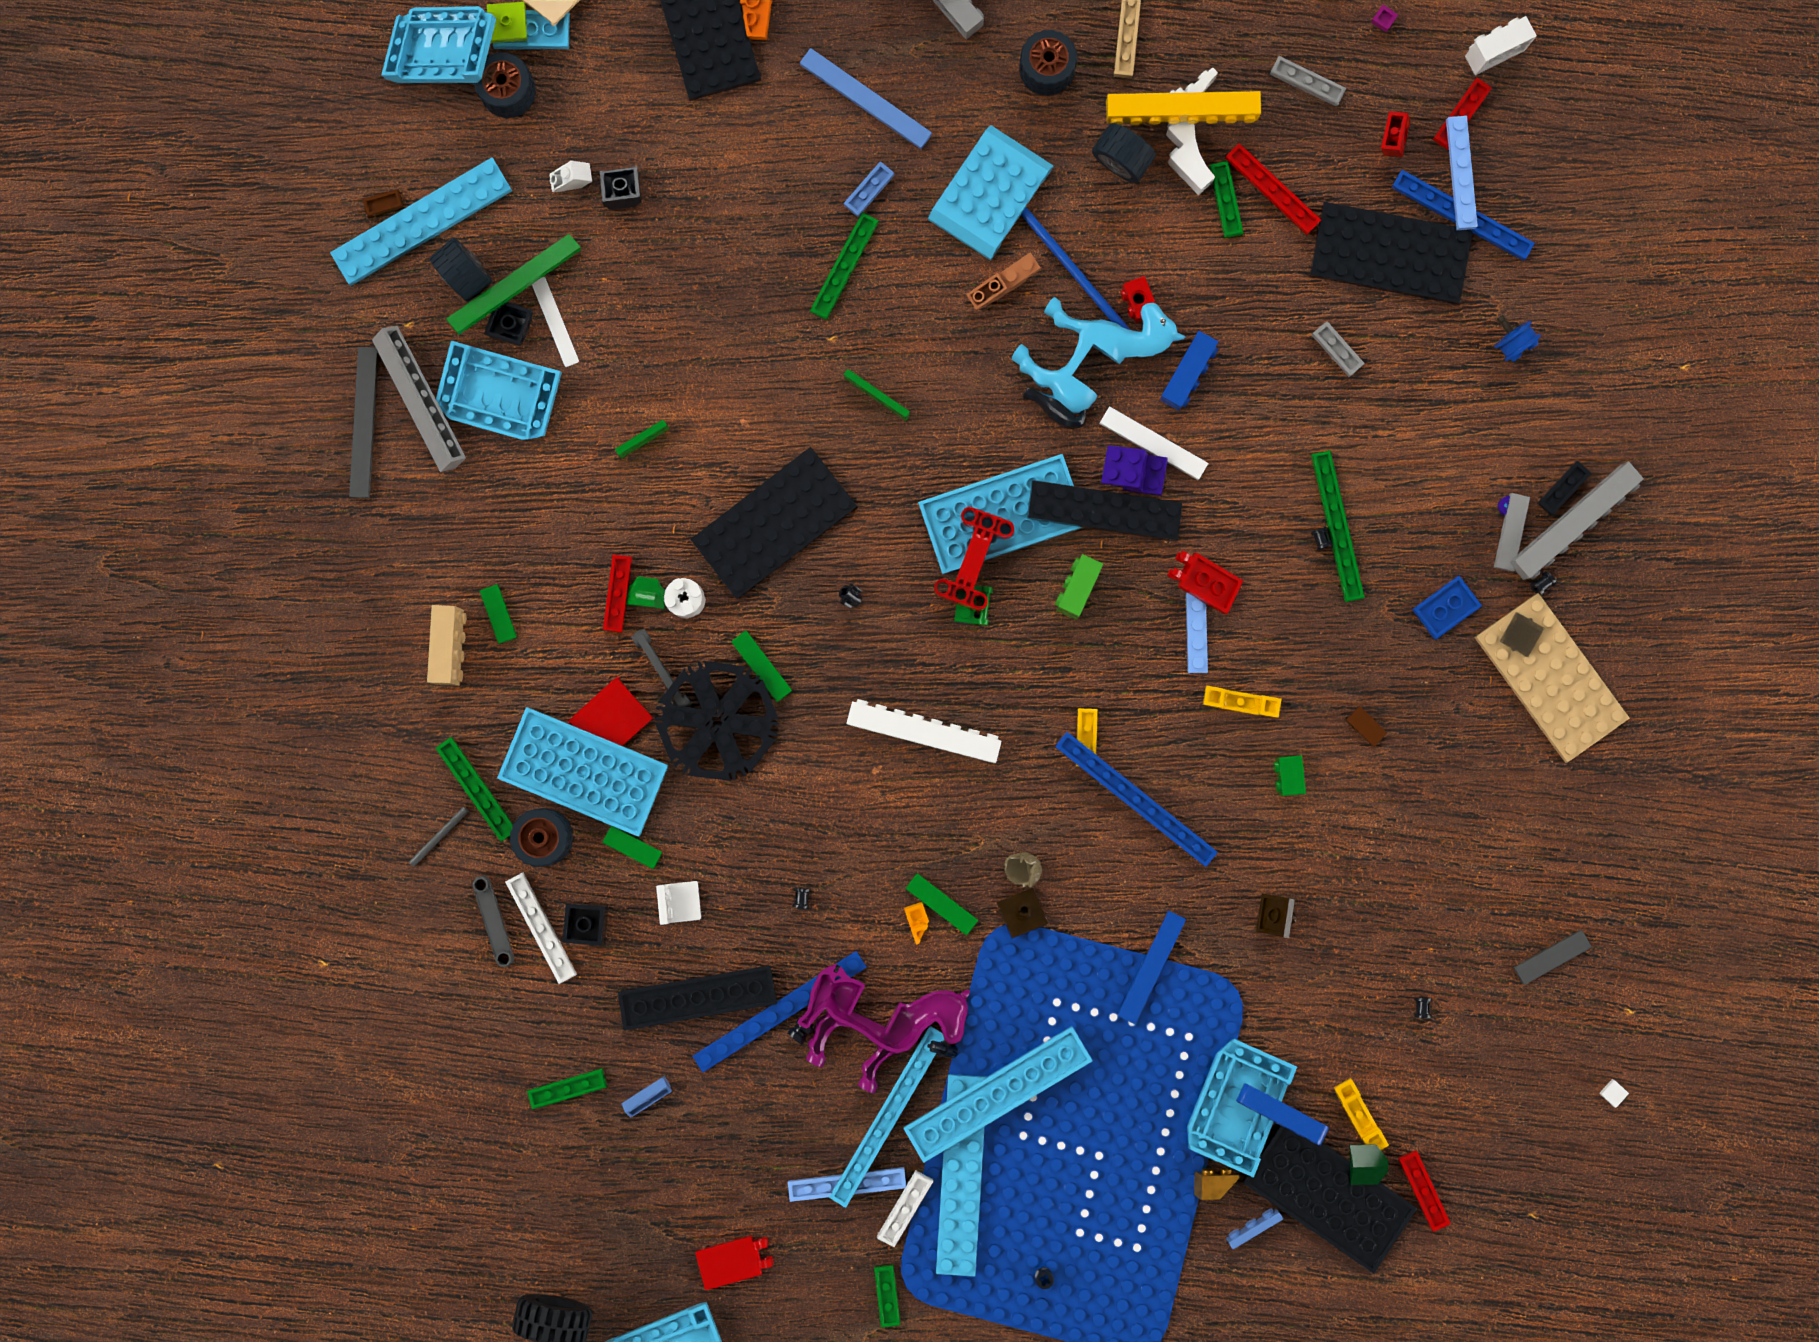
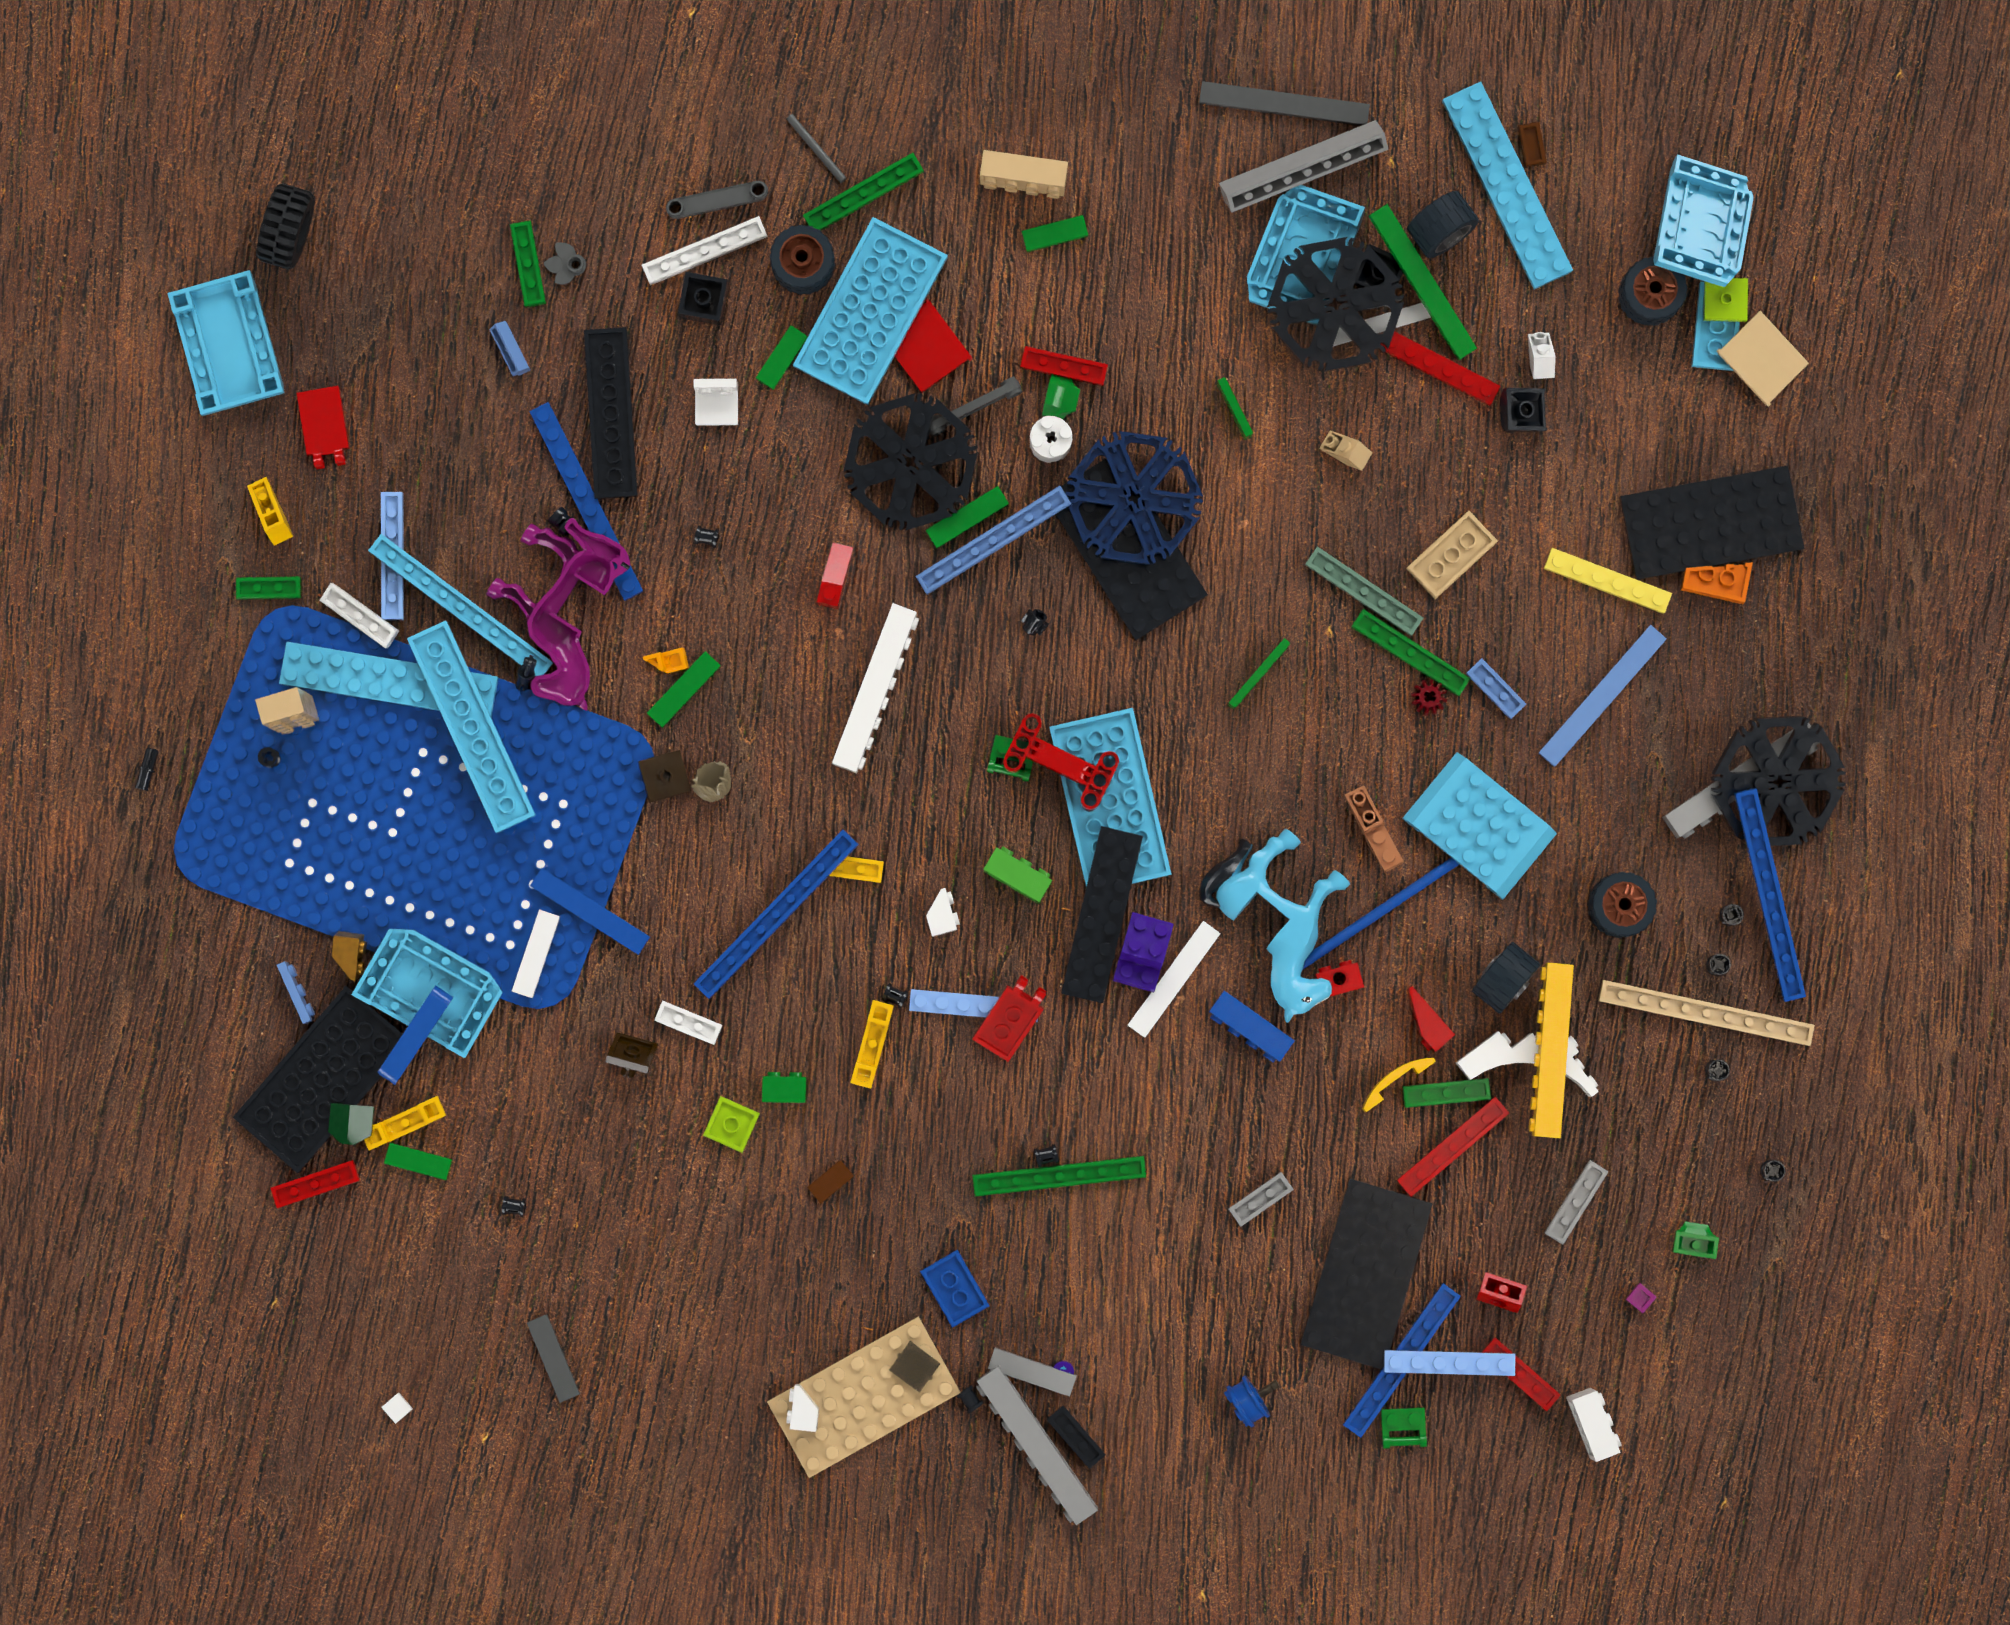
camera: 90 degrees right, 0 degrees up
(546, 374) = (1329, 323): none -> black plate
(564, 1056) = (562, 263): none -> dark grey plate
(588, 266) = (1442, 368): none -> red plate
(670, 337) = (1346, 450): none -> tan slope
(730, 501) = (1154, 500): none -> dark blue plate
(754, 238) = (1452, 554): none -> tan tile
(764, 103) = (1607, 580): none -> light yellow plate
(780, 639) = (993, 540): none -> medium blue tile
(794, 311) = (1364, 591): none -> sand green plate
(817, 1302) = (269, 511): none -> yellow slope
(825, 778) = (835, 576): none -> slope
(880, 239) = (1432, 705): none -> dark red gear
(1003, 1267) = (287, 710): none -> tan brick
(1120, 653) = (940, 915): none -> white slope
(1170, 218) = (1429, 1025): none -> red slope
(1194, 680) = (895, 995): none -> black bush
(1195, 1012) = (536, 954): none -> white tile
(1237, 260) = (1374, 1096): none -> yellow slope
(1240, 868) = (688, 1022): none -> white plate
(1326, 819) = (731, 1124): none -> lime plate
(1392, 1098) = (418, 1161): none -> green tile
(1513, 209) = (1401, 1420): none -> green plate
(1575, 726) = (804, 1410): none -> white slope

